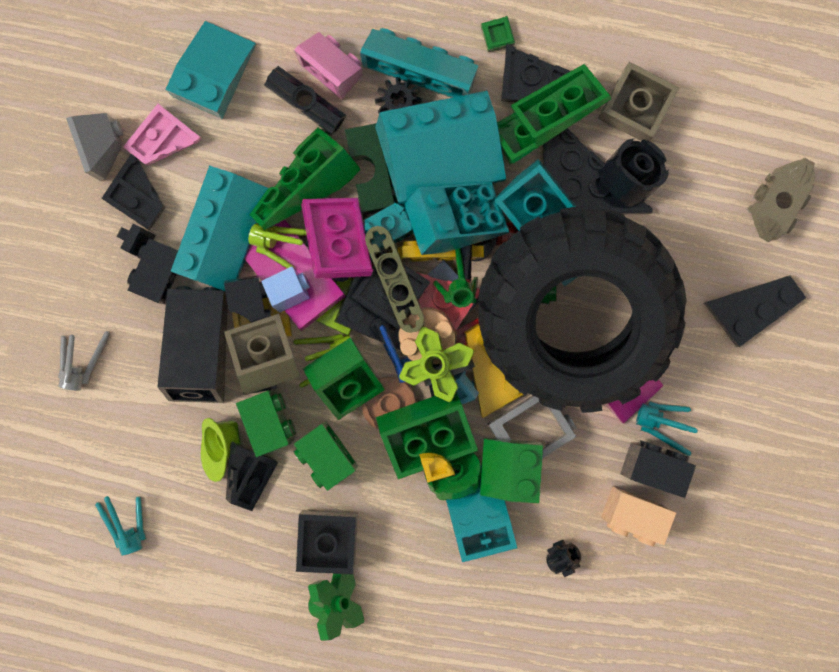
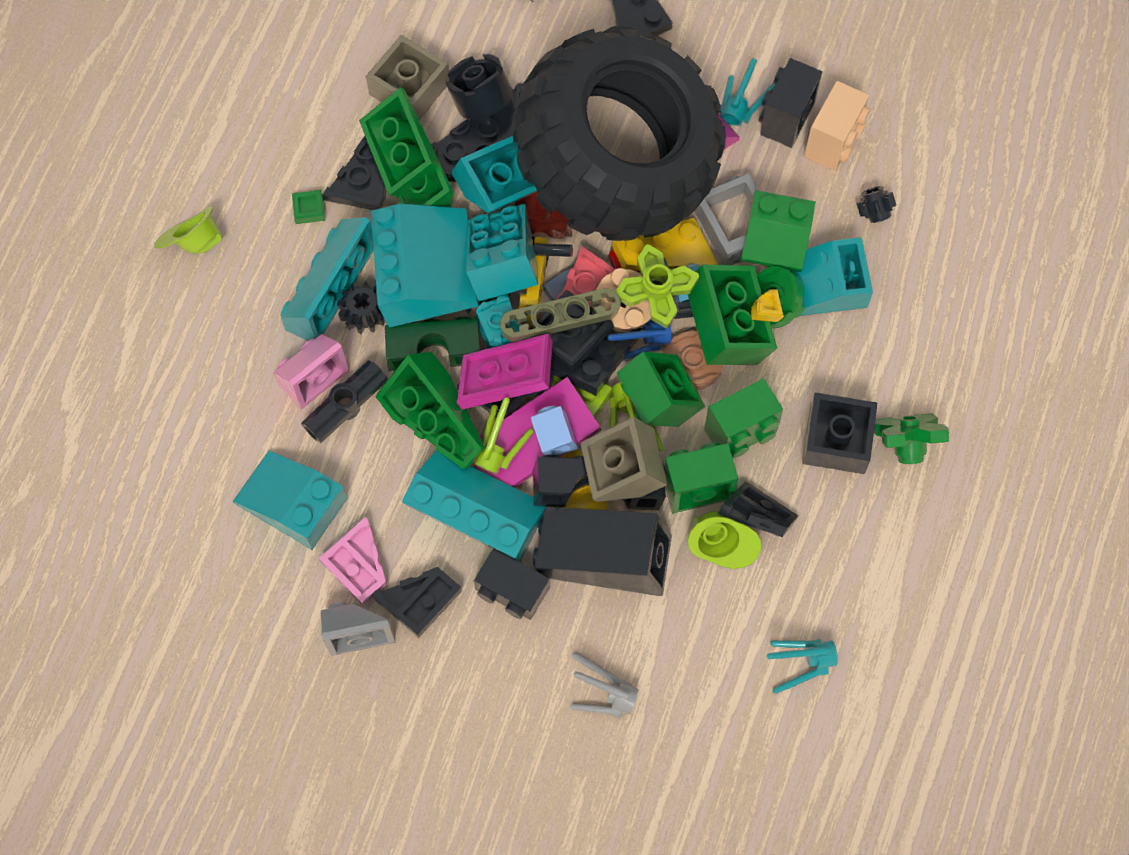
camera: 80 degrees left, 20 degrees down
(134, 238) = (470, 604): black tile -> none
(460, 290) = (579, 250): green plant -> none

